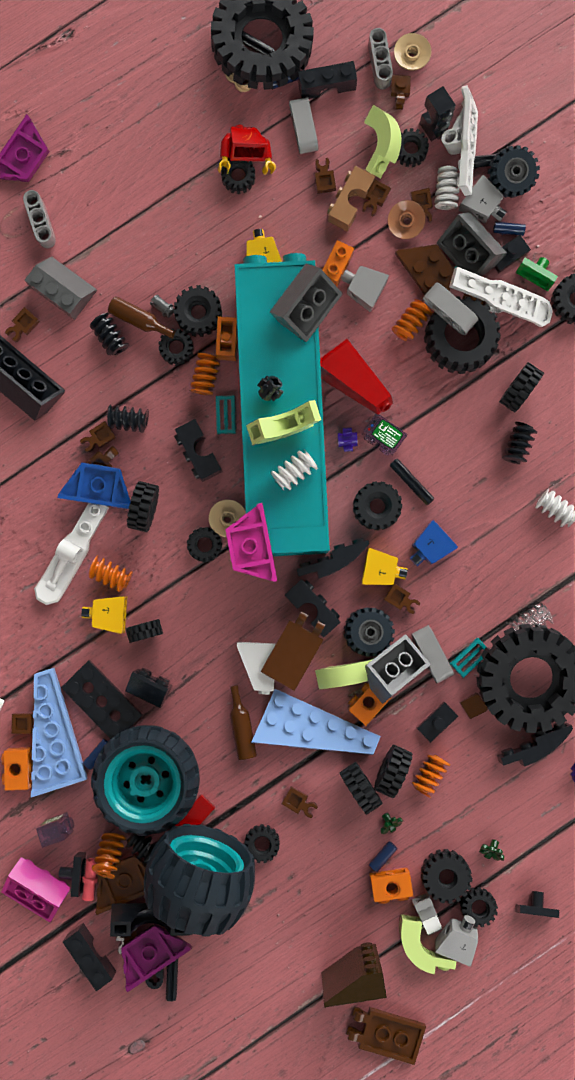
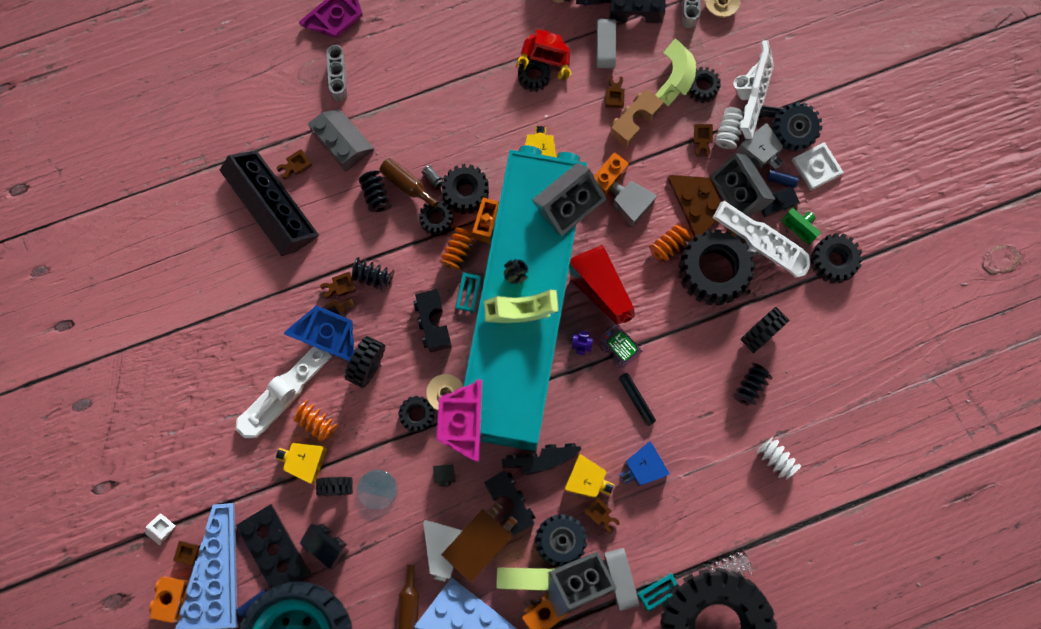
camera: 10 degrees right, 10 degrees down
(183, 618) = (377, 489): none -> clear light blue tile
(244, 596) = (444, 475): none -> pearl dark grey plate
(294, 470) = (521, 355): white piece -> none
(377, 196) = (661, 121): reddish brown plate -> none
(380, 491) = (600, 400): black tyre -> none
(400, 89) = (704, 31): reddish brown plate -> none
(403, 210) = (682, 140): nougat dish -> none
(438, 115) = (735, 59): black arch -> none
(450, 308) = (709, 238): light grey beam -> none
(541, 208) = (817, 166): none -> white tile

